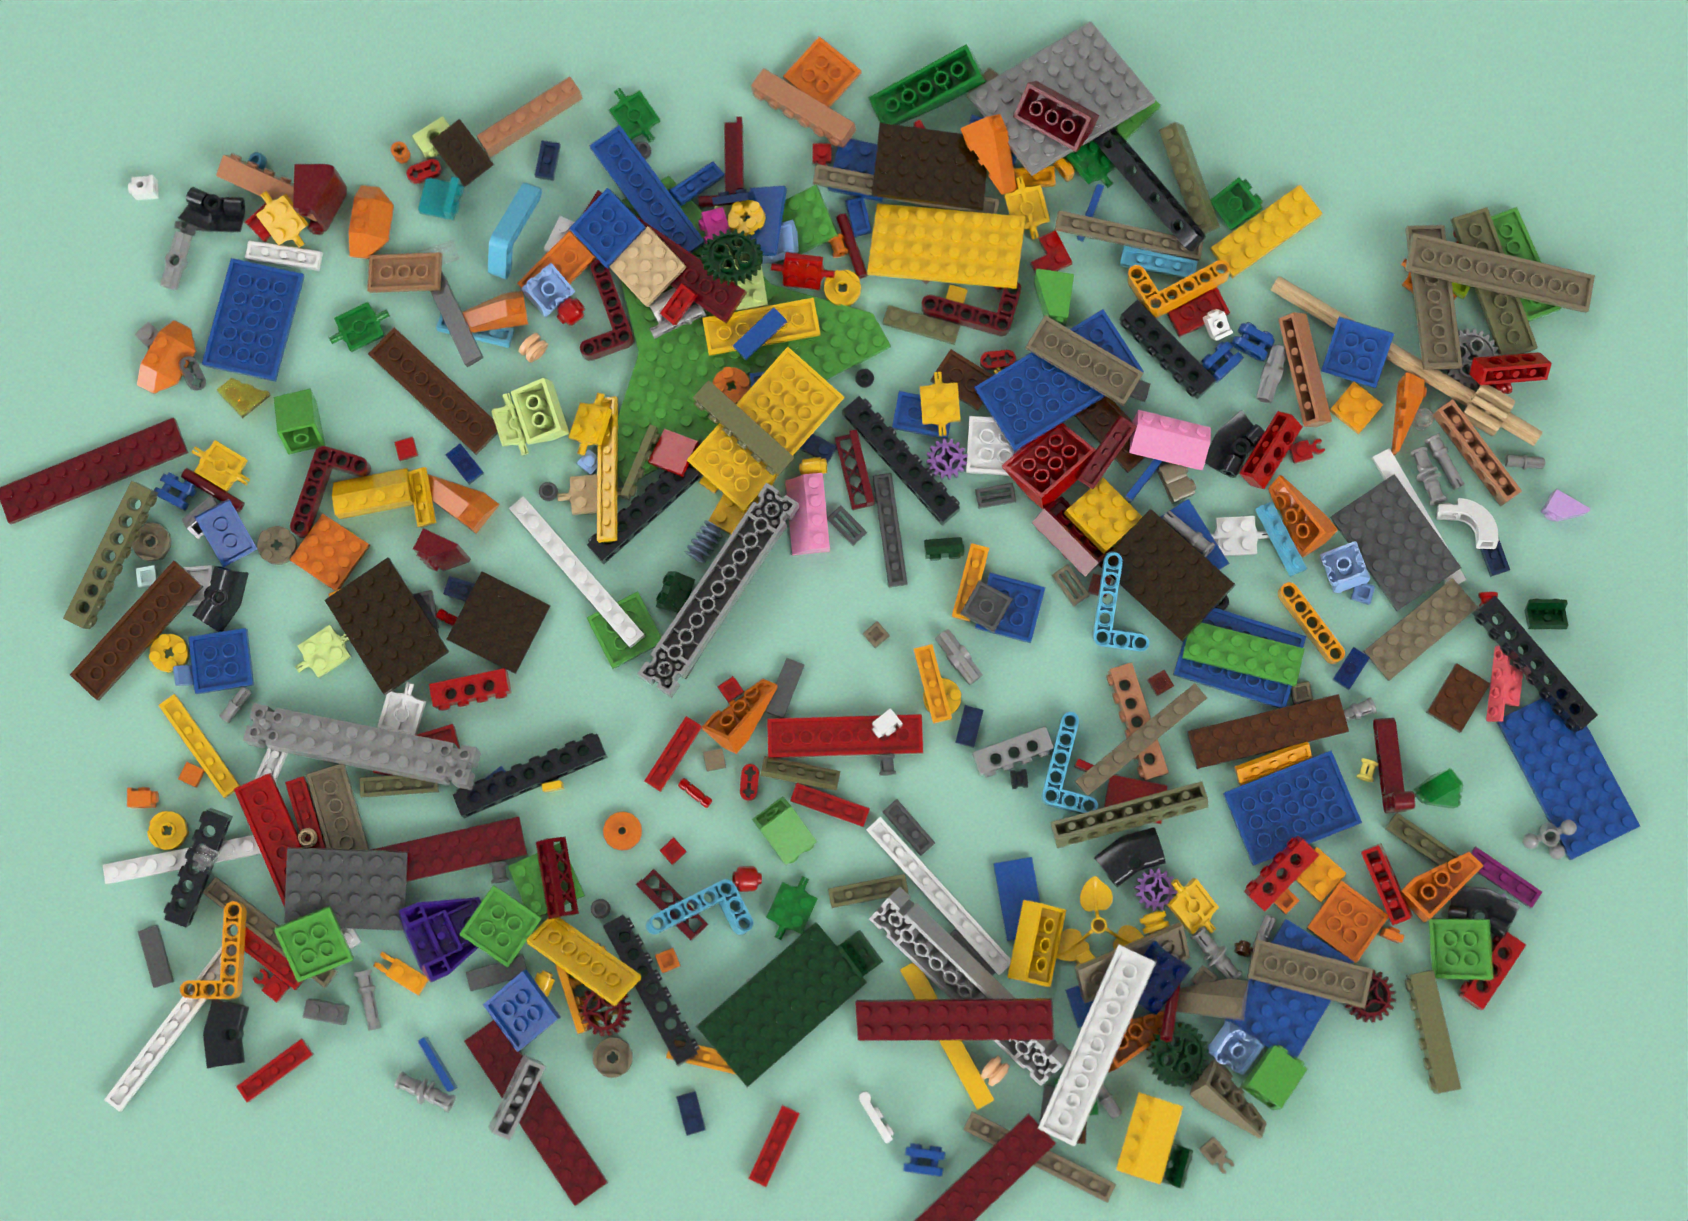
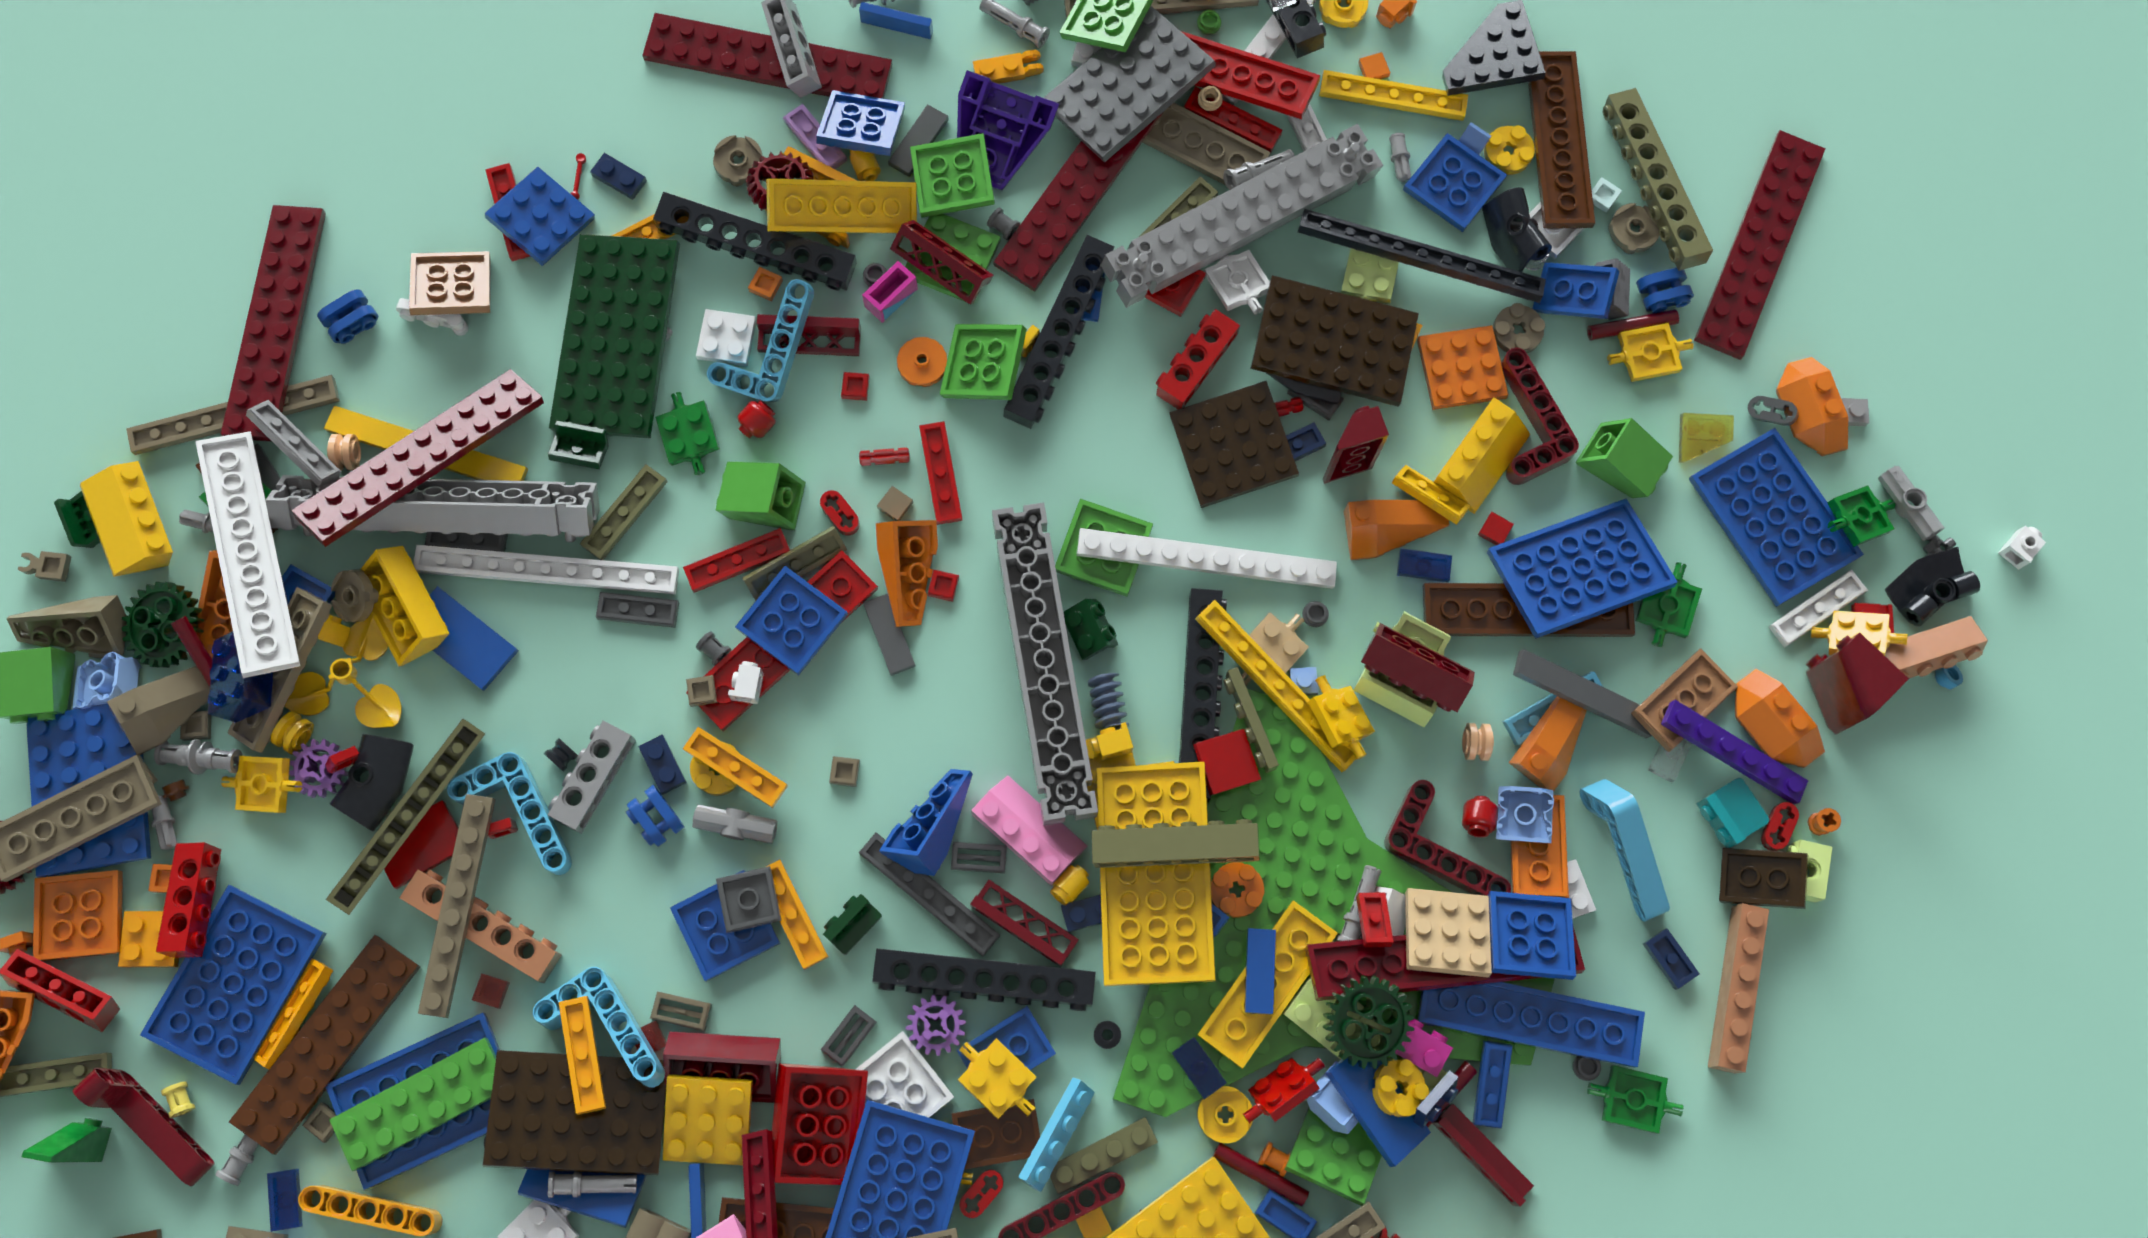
camera: 130 degrees right, 5 degrees down
(115, 713) = (1496, 54): none -> plate
(210, 277) = (1861, 515): none -> green plate
(256, 892) = (1209, 22): none -> bright green plate
(288, 631) = (1422, 255): none -> black plate
(330, 769) = (1250, 170): none -> light grey pin
(385, 384) = (1581, 568): none -> blue plate
(409, 224) = (1734, 752): none -> dark purple plate
(527, 406) = (1418, 668): none -> dark red slope
(555, 1035) = (806, 128): none -> lavender tile
(590, 794) = (983, 361): none -> bright green plate
(602, 886) = (890, 291): none -> dark pink brick
(703, 1146) = (581, 159): none -> red hinge
(719, 948) = (726, 337): none -> white plate
(723, 516) = (1112, 742): none -> yellow brick
(759, 1124) = (539, 216): none -> blue plate
(831, 738) = (791, 620): none -> blue plate
(834, 319) = (1199, 1068): none -> clear blue plate
(848, 1124) = (450, 283): none -> plate
(859, 561) = (927, 835): none -> blue wedge
(914, 744) = (701, 691): none -> dark tan tile
(938, 350) = (1056, 1134): none -> medium azure plate
(1004, 708) = (639, 813): none -> blue brick
(1019, 1095) = (293, 443): none -> light grey tile
(1050, 968) = (353, 595): none -> dark tan plate
(1139, 598) = (582, 1055): none -> light orange plate
(1139, 876) = (342, 759): none -> red tile

